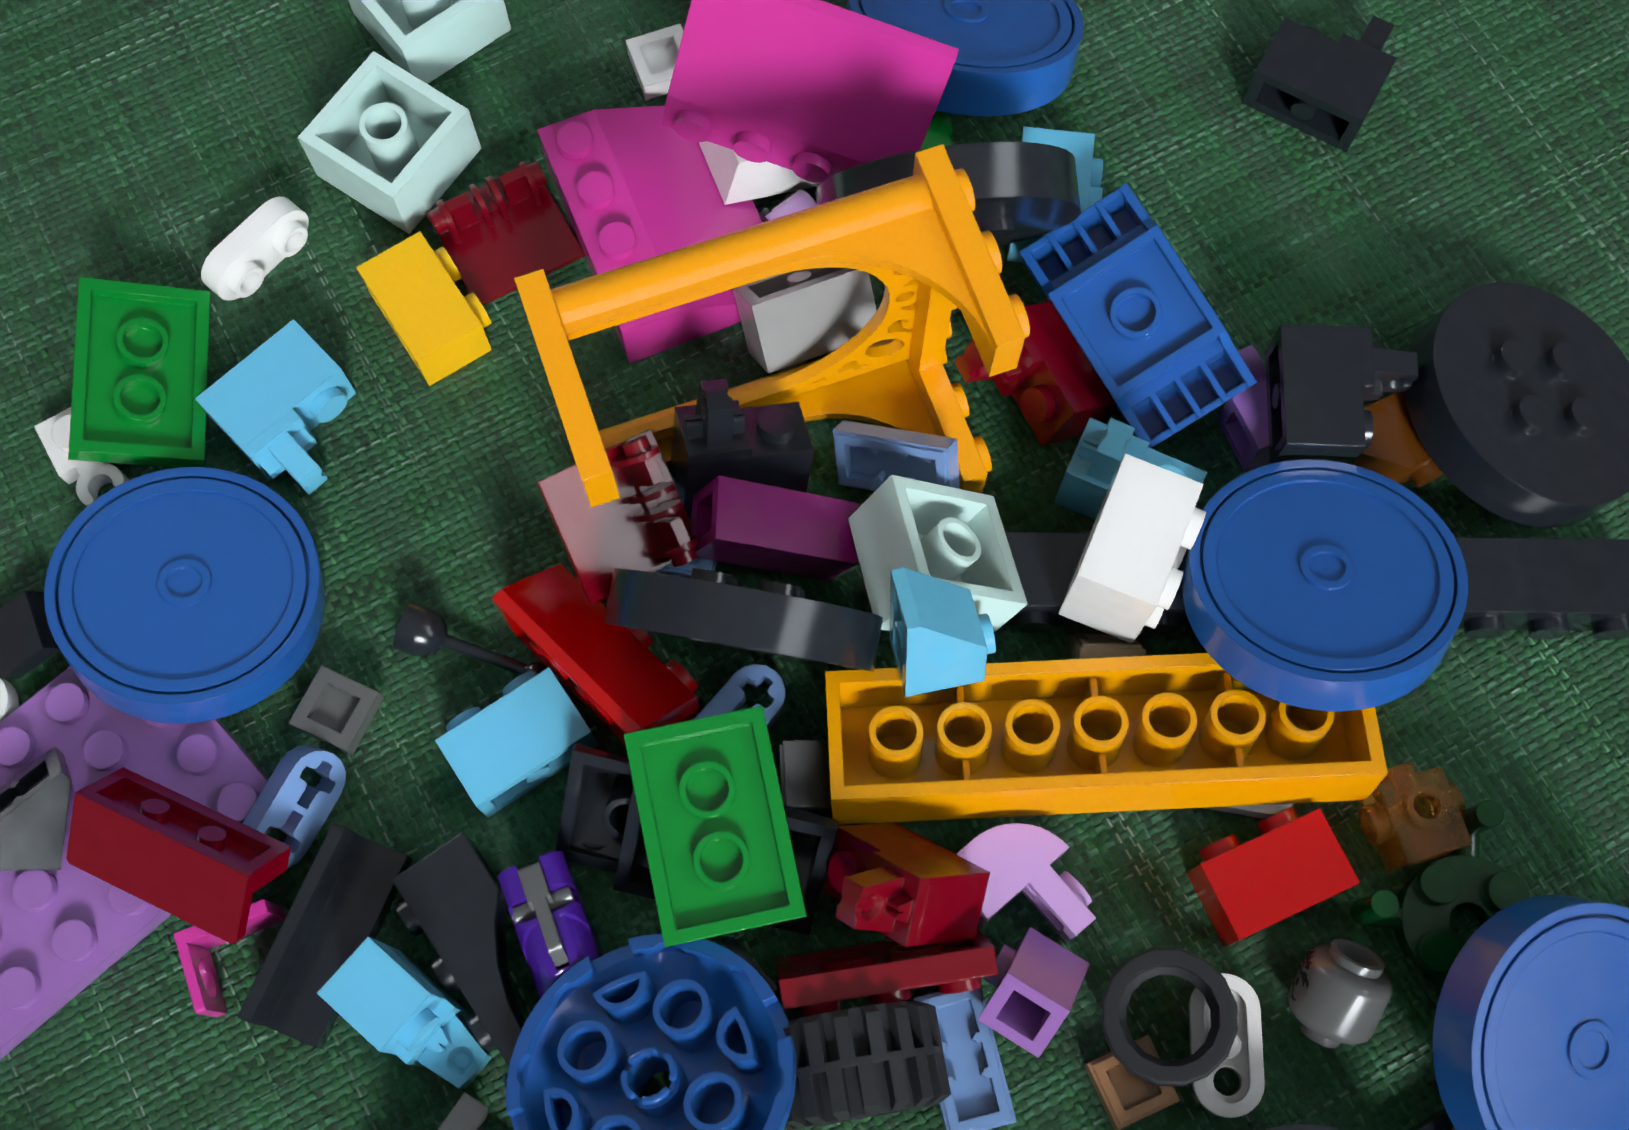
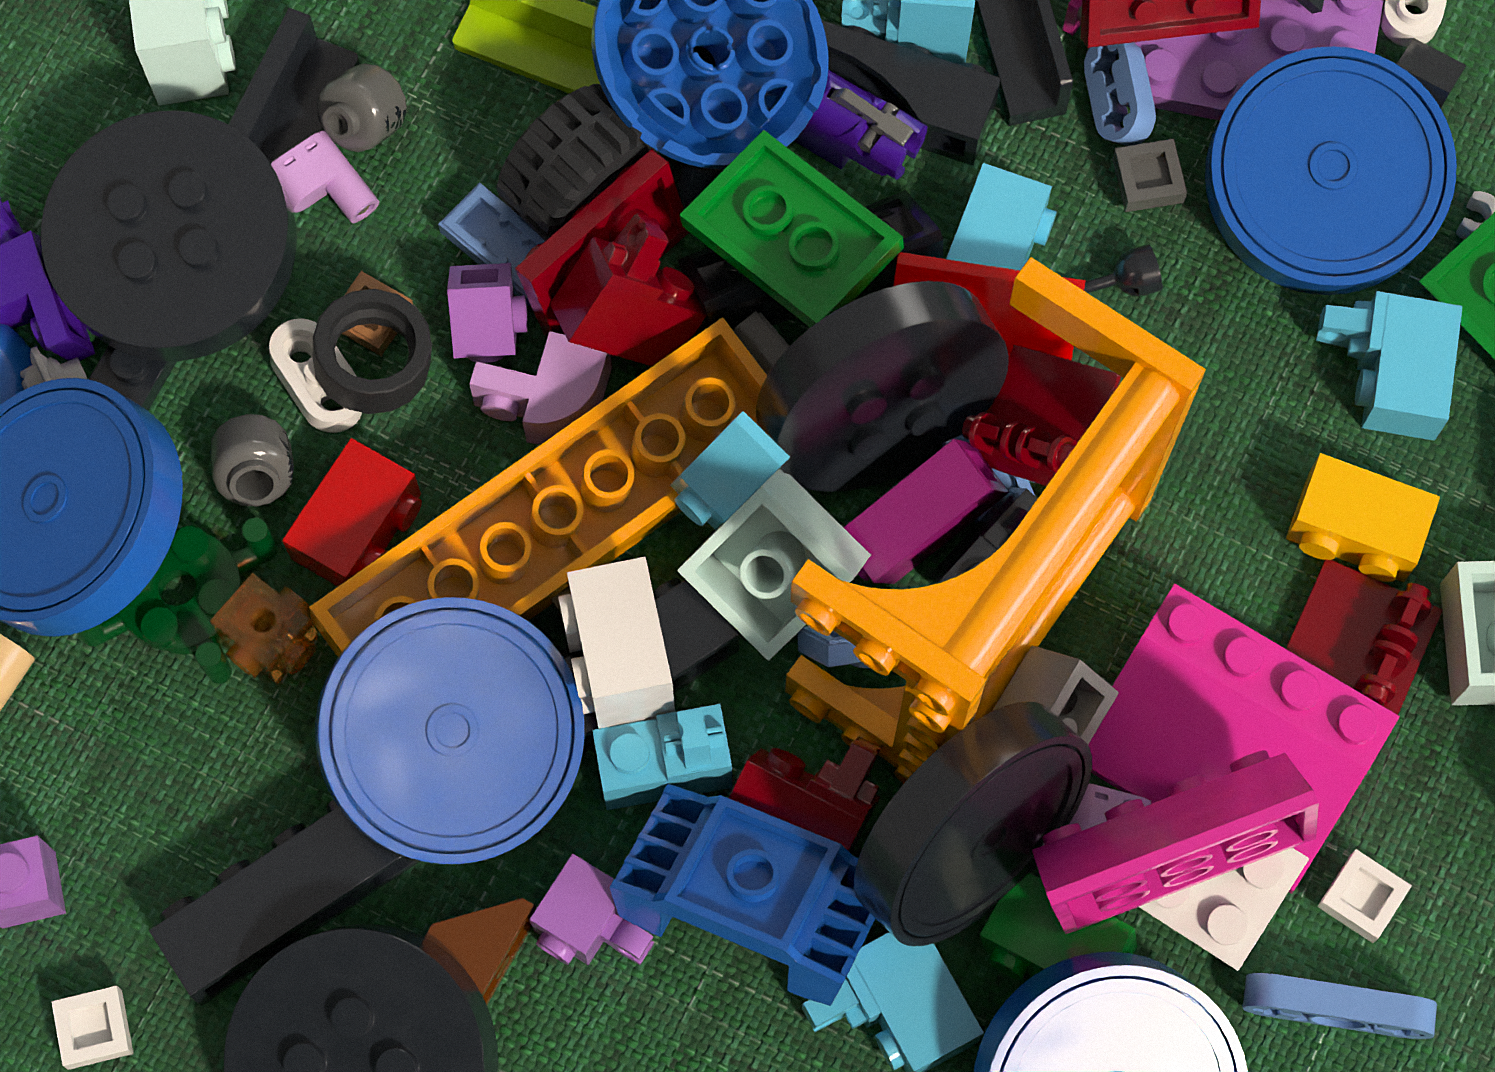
camera: 145 degrees right, 0 degrees up
(1319, 387) = (554, 920): black hinge -> none

